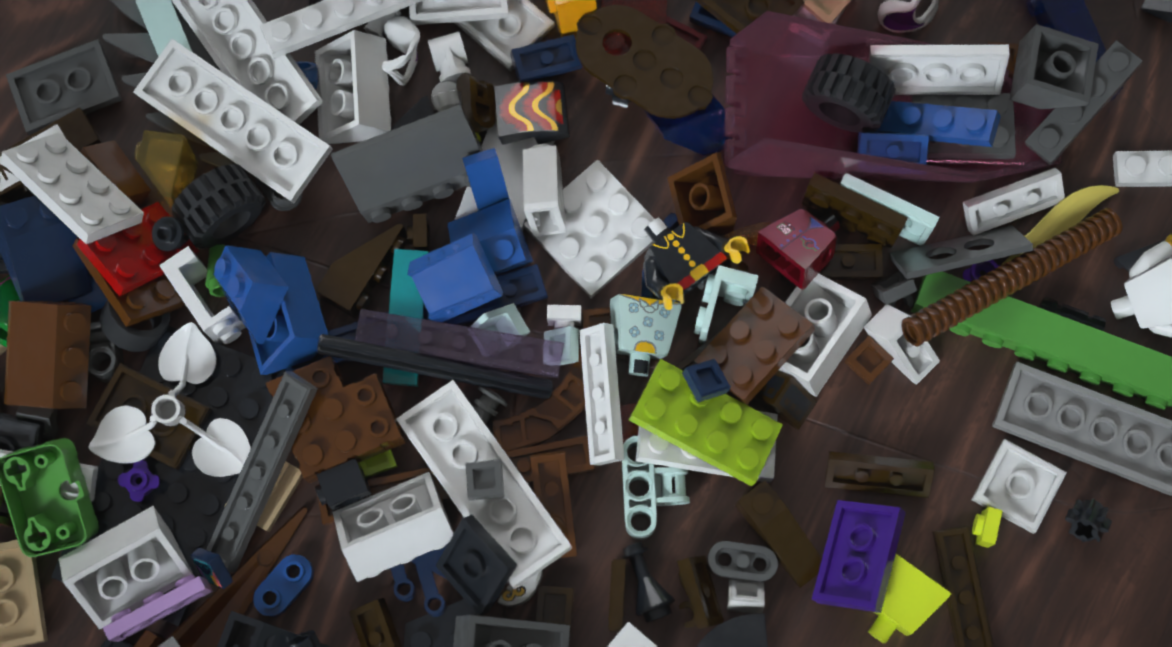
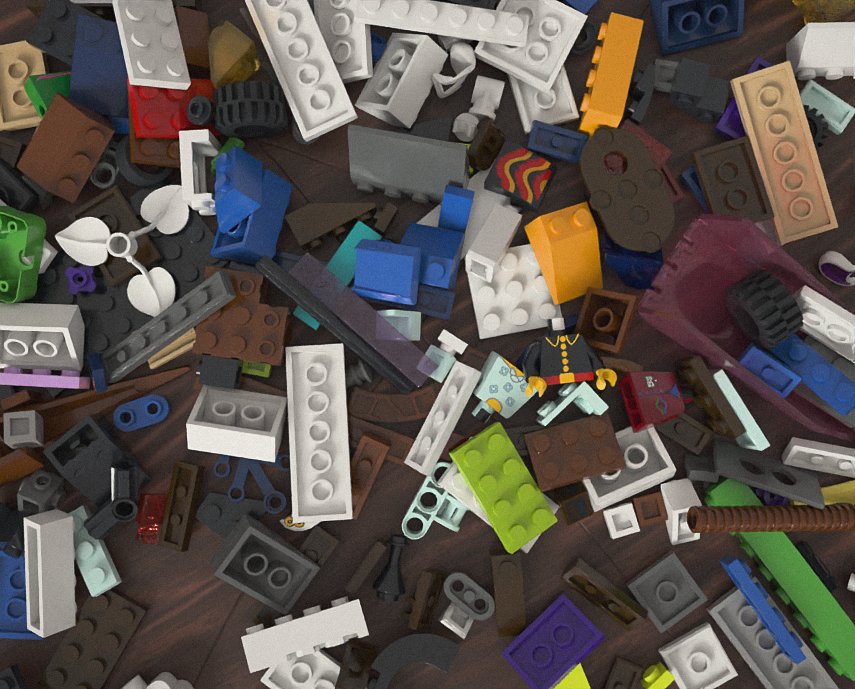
camera: 30 degrees right, 10 degrees up
(476, 565) = (277, 491): black plate -> none
(484, 480) = (319, 434): dark grey plate -> none
(623, 156) = (567, 251): none -> light orange slope
(706, 380) = (522, 459): dark blue tile -> none
(848, 389) = (621, 520): none -> white plate
(940, 432) = (666, 591): none -> dark grey plate
(1054, 388) = (770, 617): none -> blue plate

